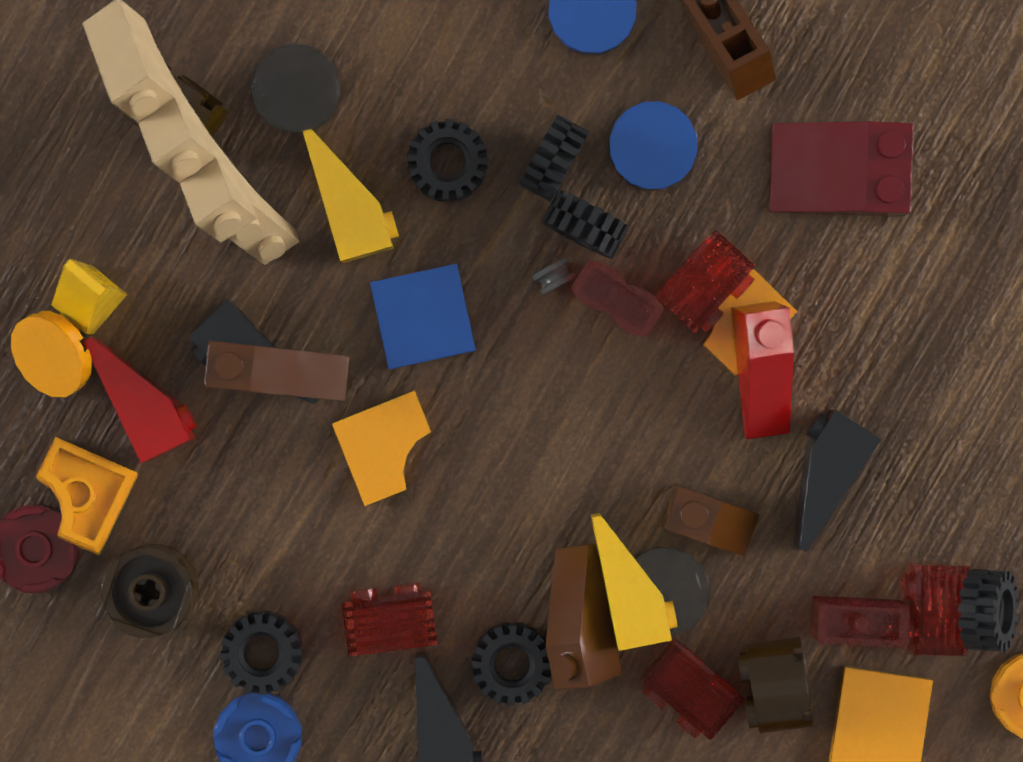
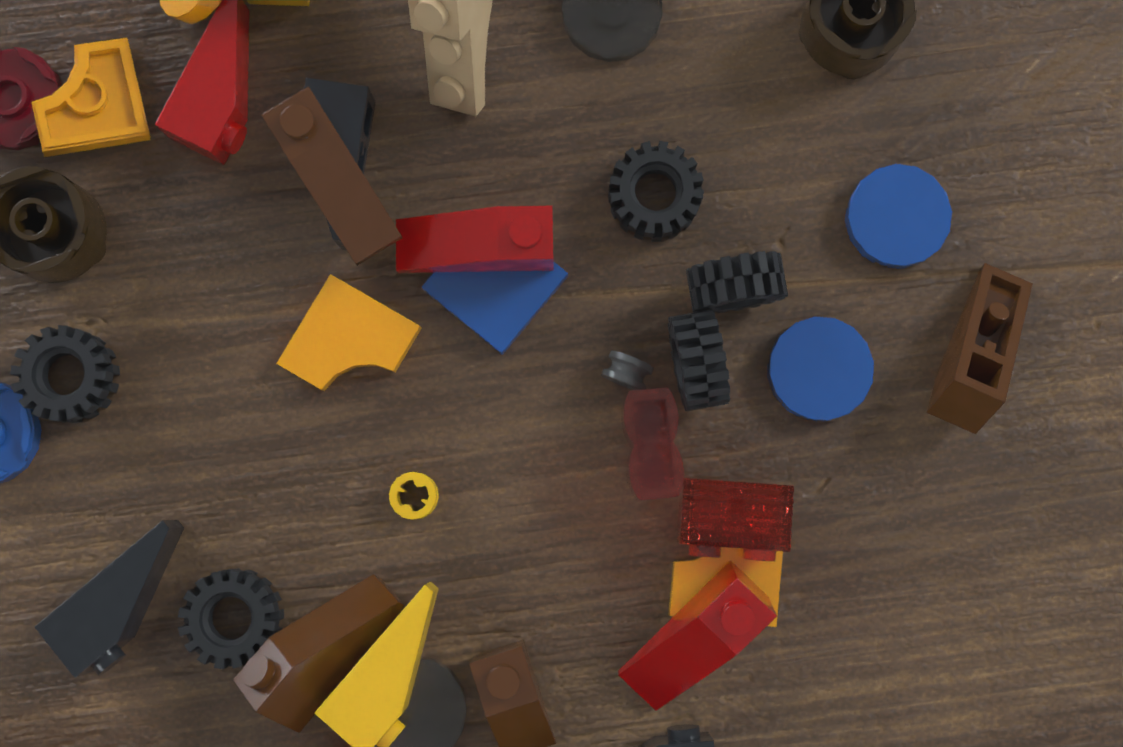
camera: 50 degrees right, 5 degrees down
(352, 211) = (538, 143): yellow slope -> none
(389, 309) = (477, 240): none -> red slope
(389, 620) = (184, 469): clear red brick -> none
(531, 495) = (407, 510): none -> yellow bush
(841, 168) = (945, 564): dark red slope -> none

